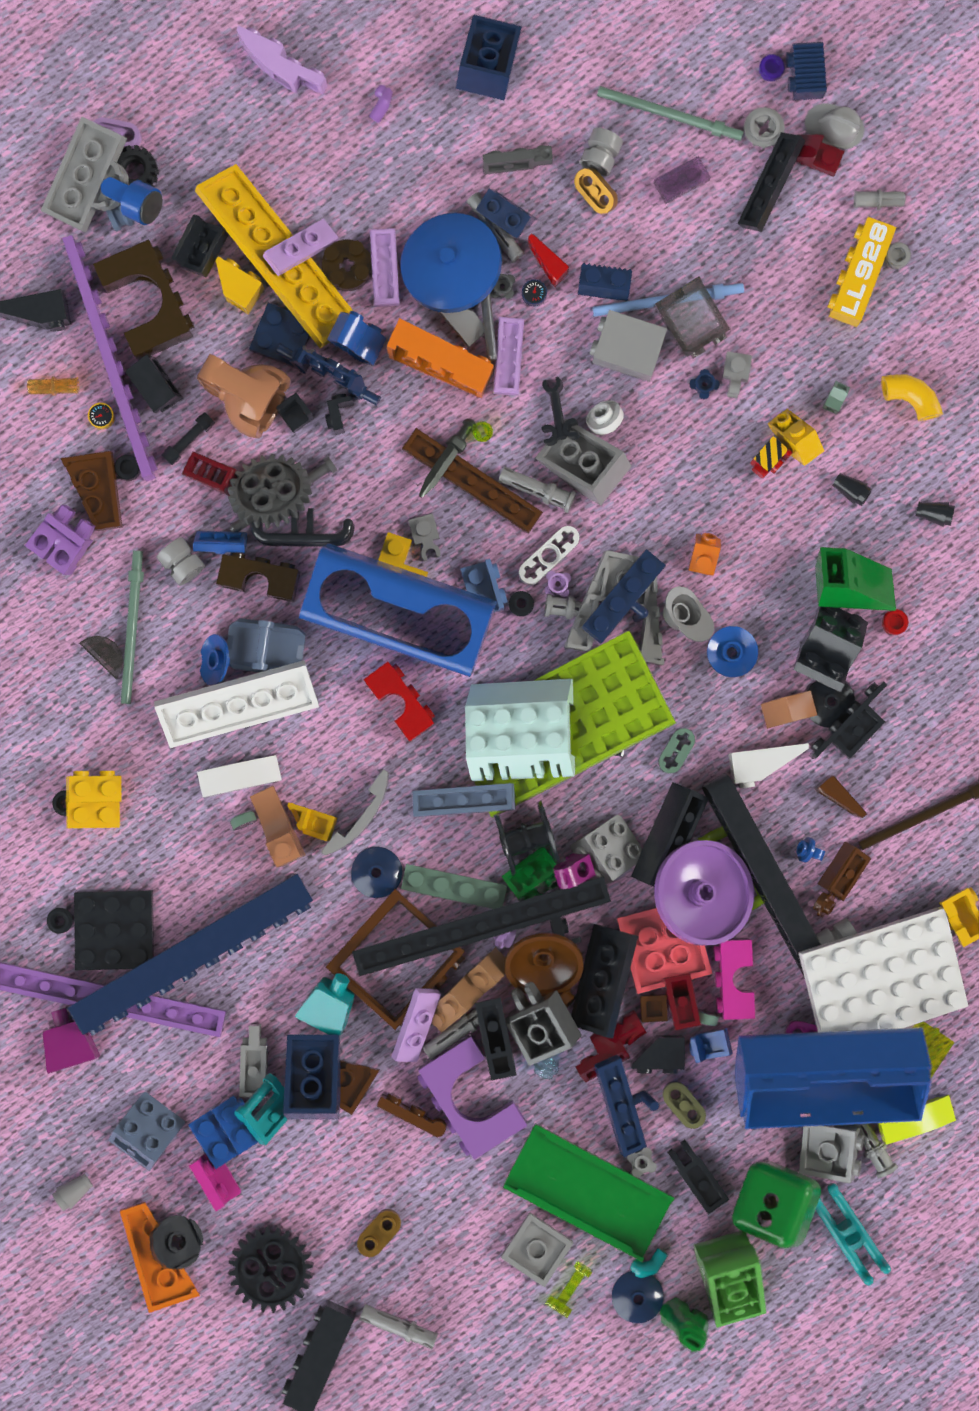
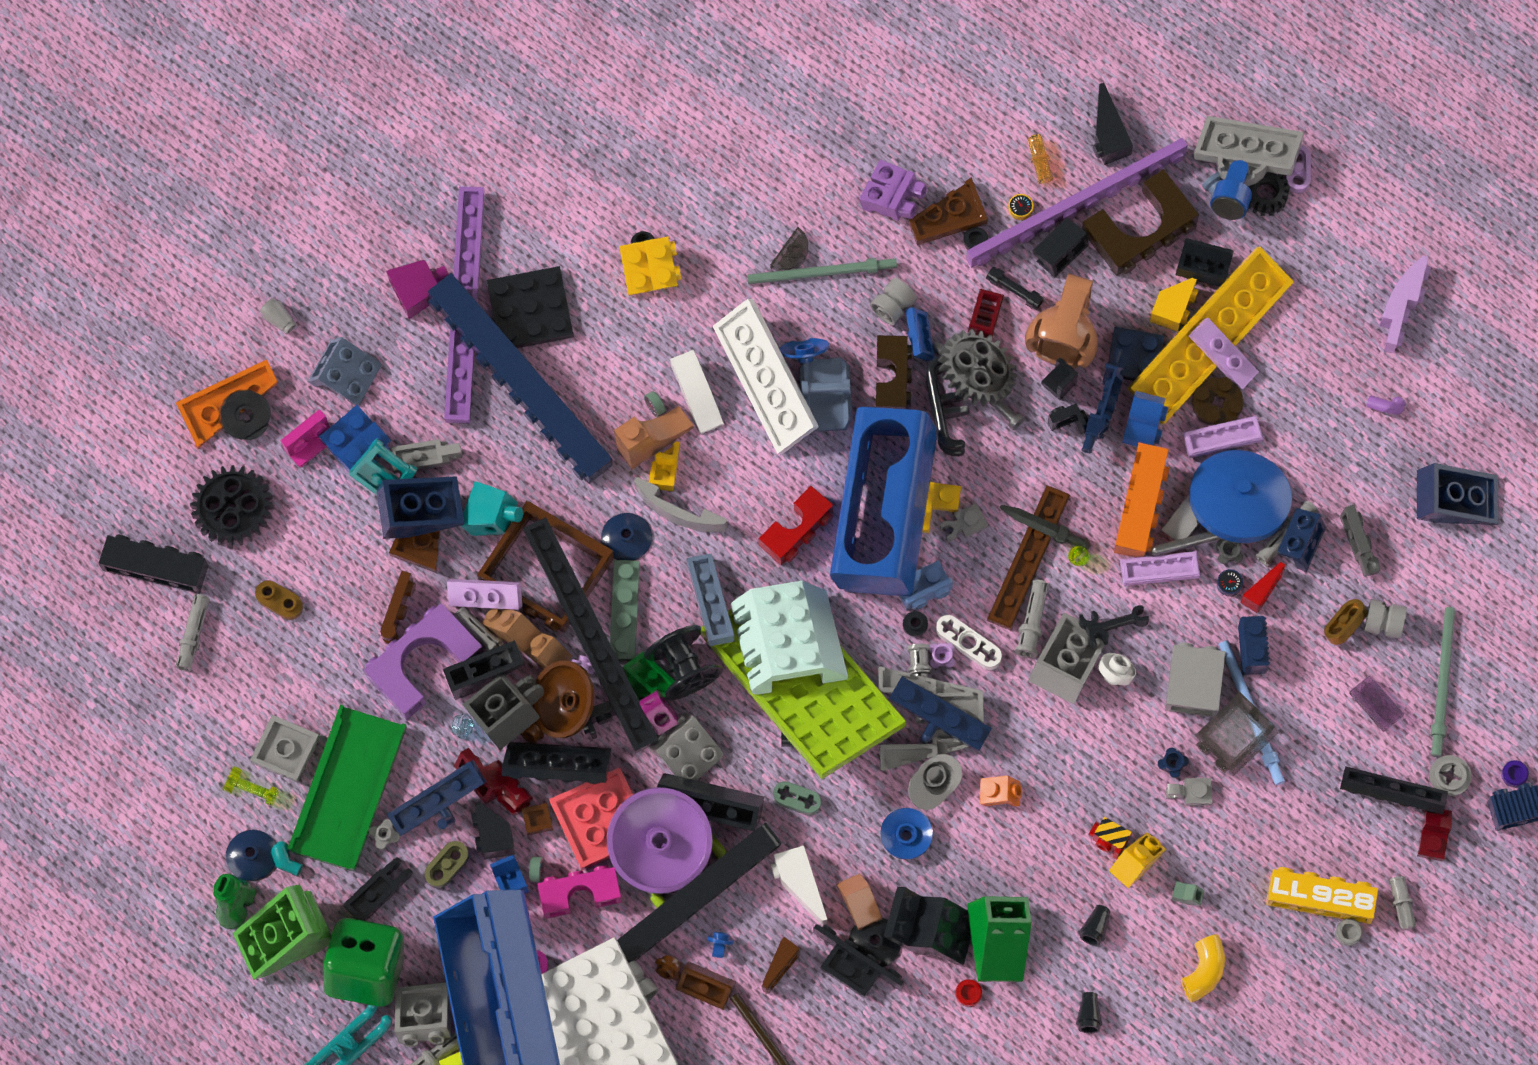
camera: 85 degrees right, 15 degrees down
(51, 920) = (528, 252): black plate -> none
(682, 1001) = (548, 840): dark red slope -> none
(838, 124) = (1470, 848): light grey piece -> none

